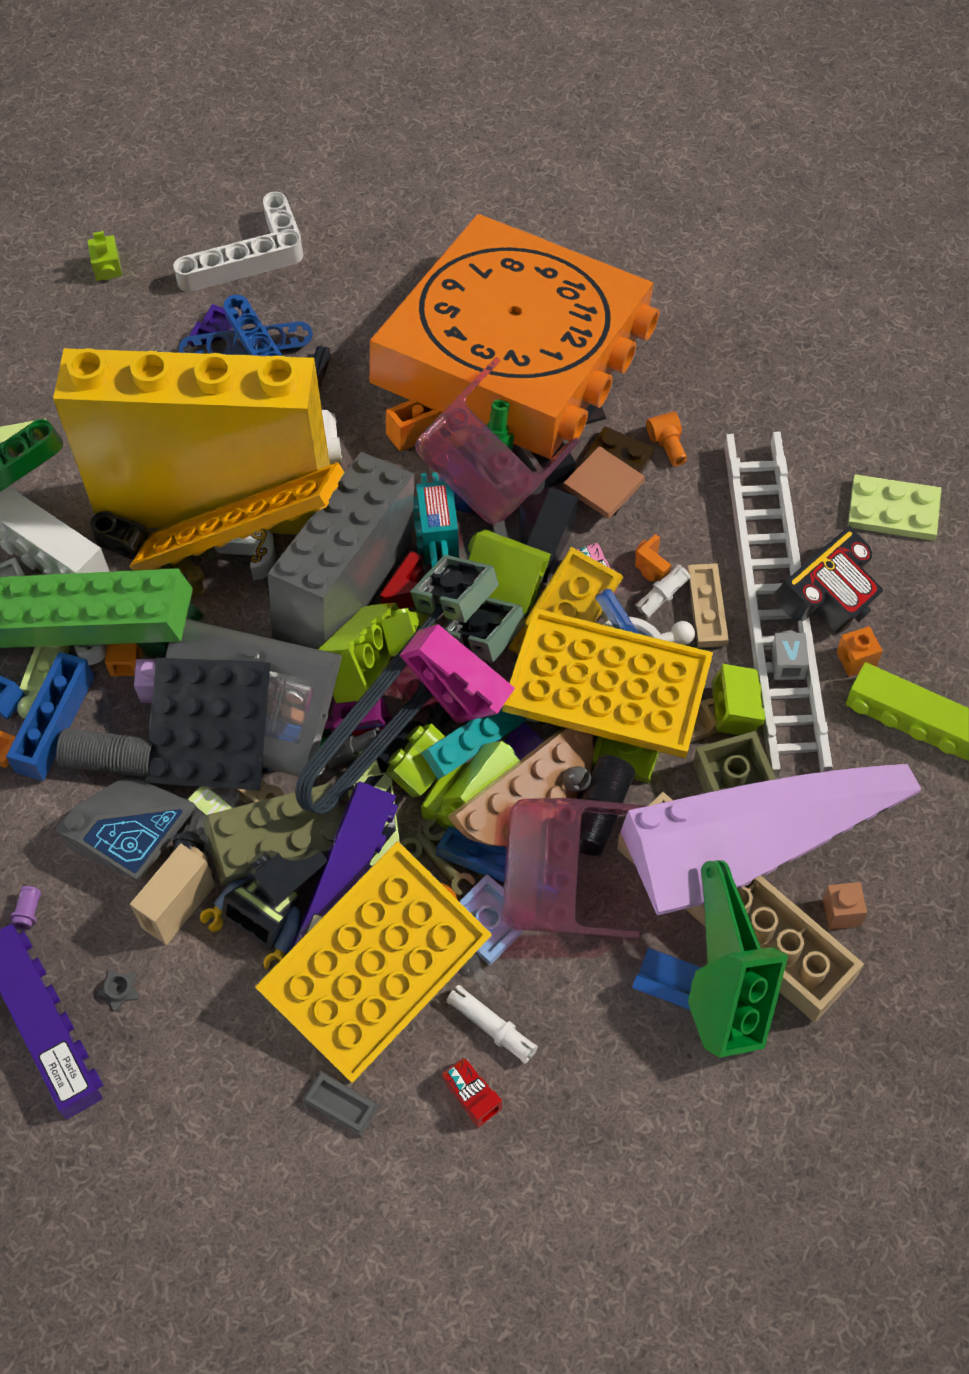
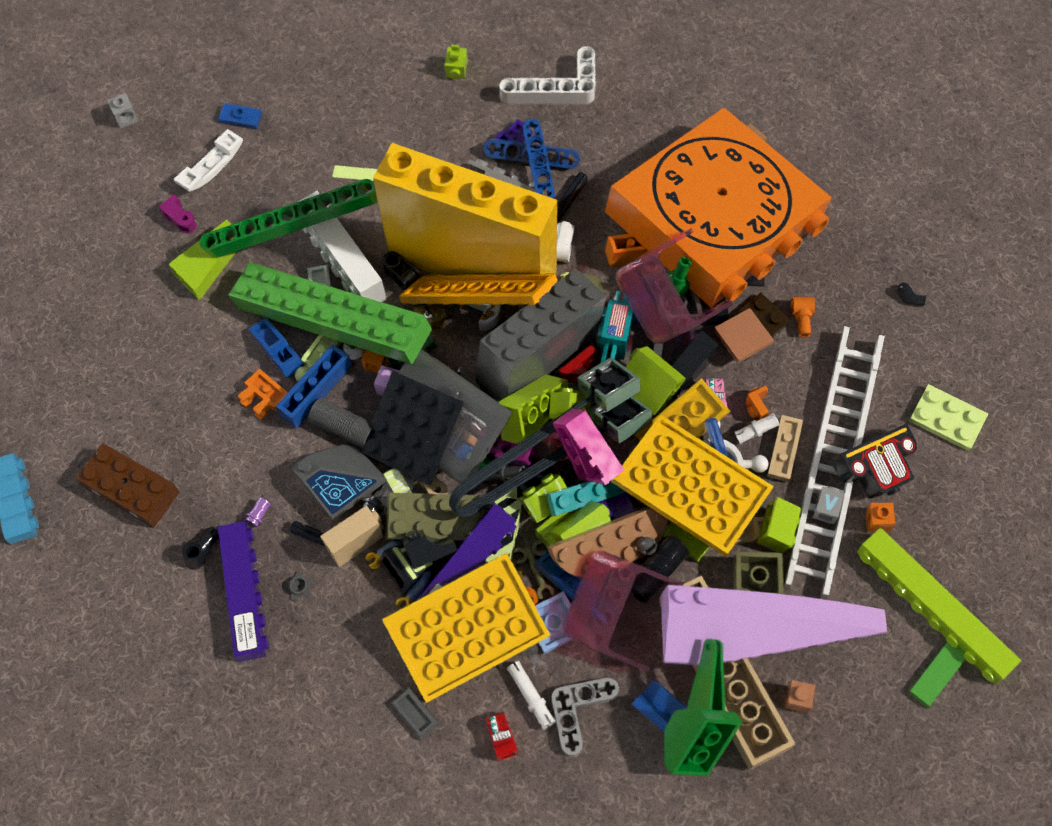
camera: 20 degrees right, 5 degrees up
(107, 912) = (307, 532): none -> black axle
(553, 1013) = (575, 701): none -> light grey beam
(791, 379) = (908, 296): none -> black arm

